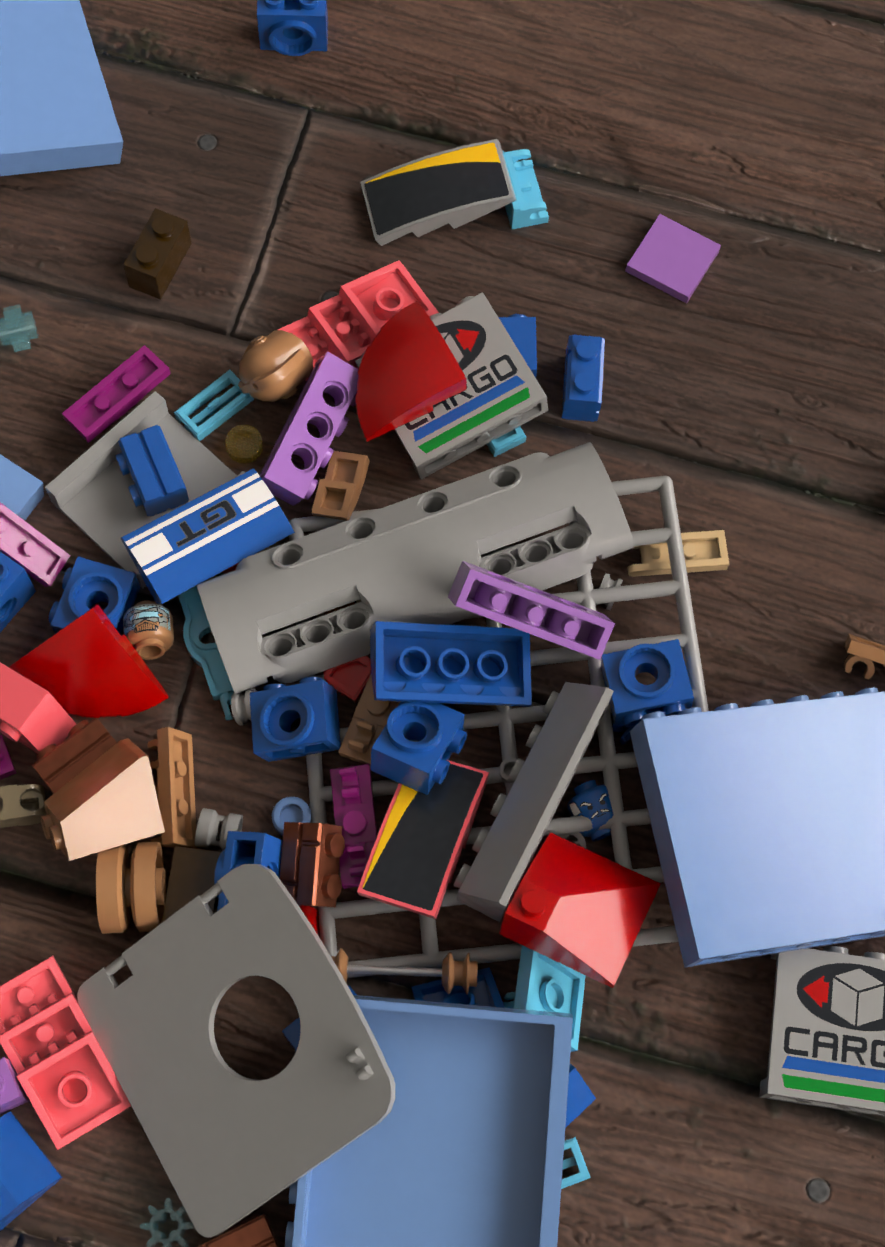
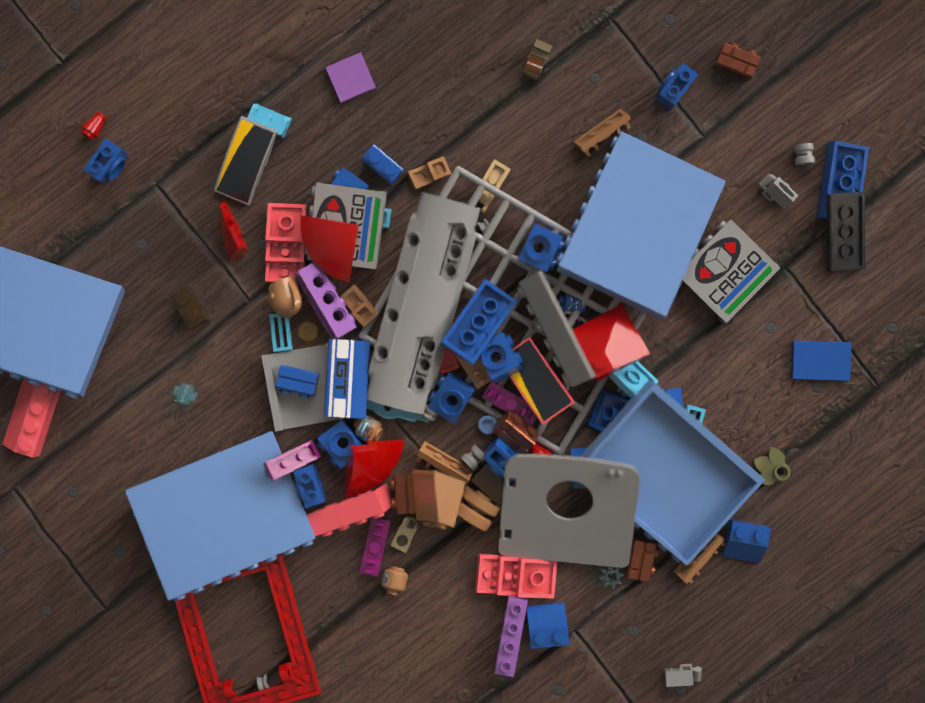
camera: 50 degrees left, 20 degrees up
(116, 393) = (249, 371): magenta plate -> none
(314, 235) = (231, 233): none -> red brick
(453, 972) = (598, 407): medium nougat axle -> none
(530, 610) = (480, 275): medium lavender brick -> none
(625, 457) = (429, 173): none -> medium nougat slope

